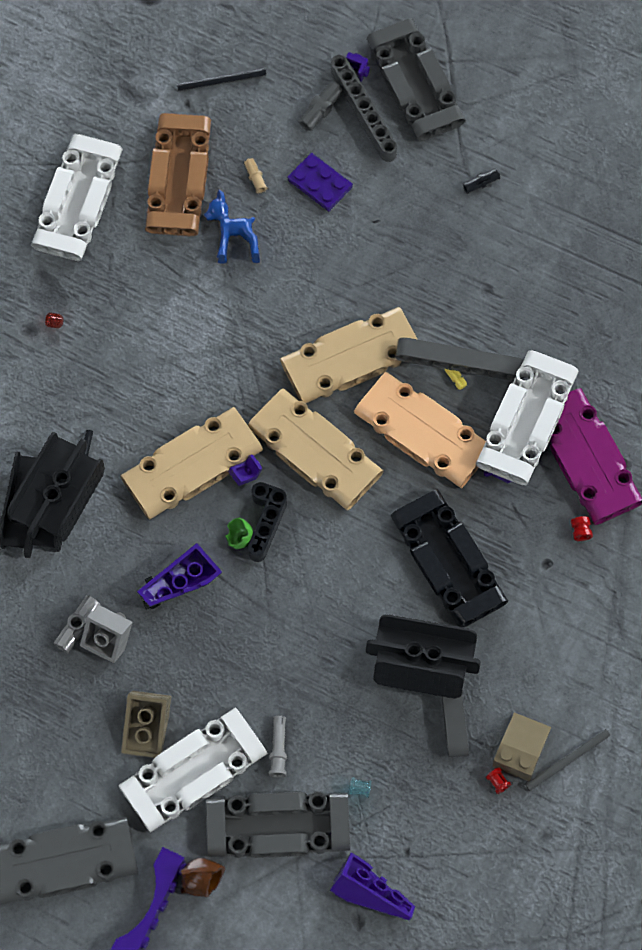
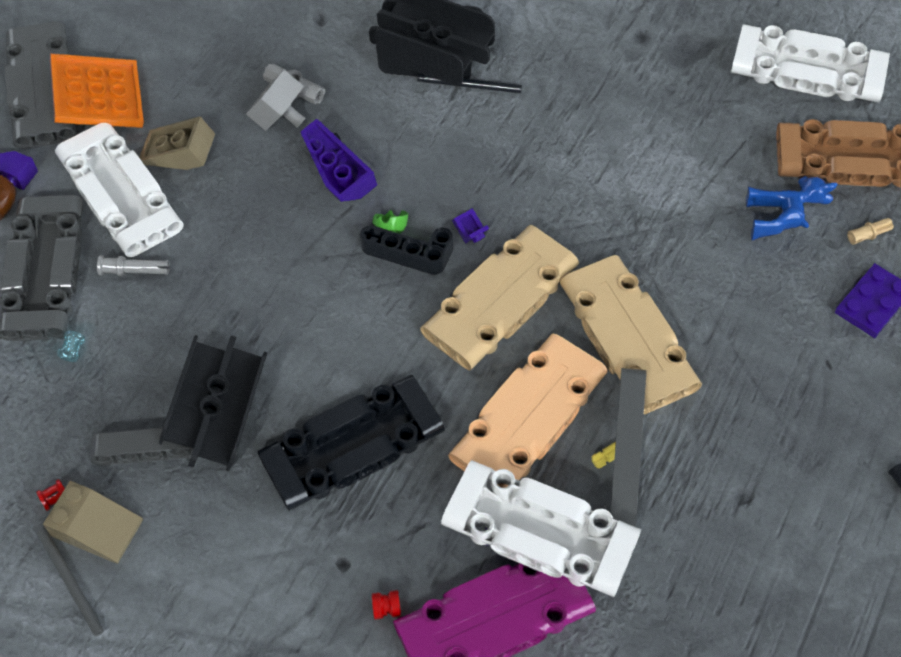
camera: 90 degrees right, 10 degrees down
(54, 320) = (653, 53): clear red piece -> none
(82, 799) = (96, 91): none -> orange plate
(191, 463) = (482, 176): tan panel -> none

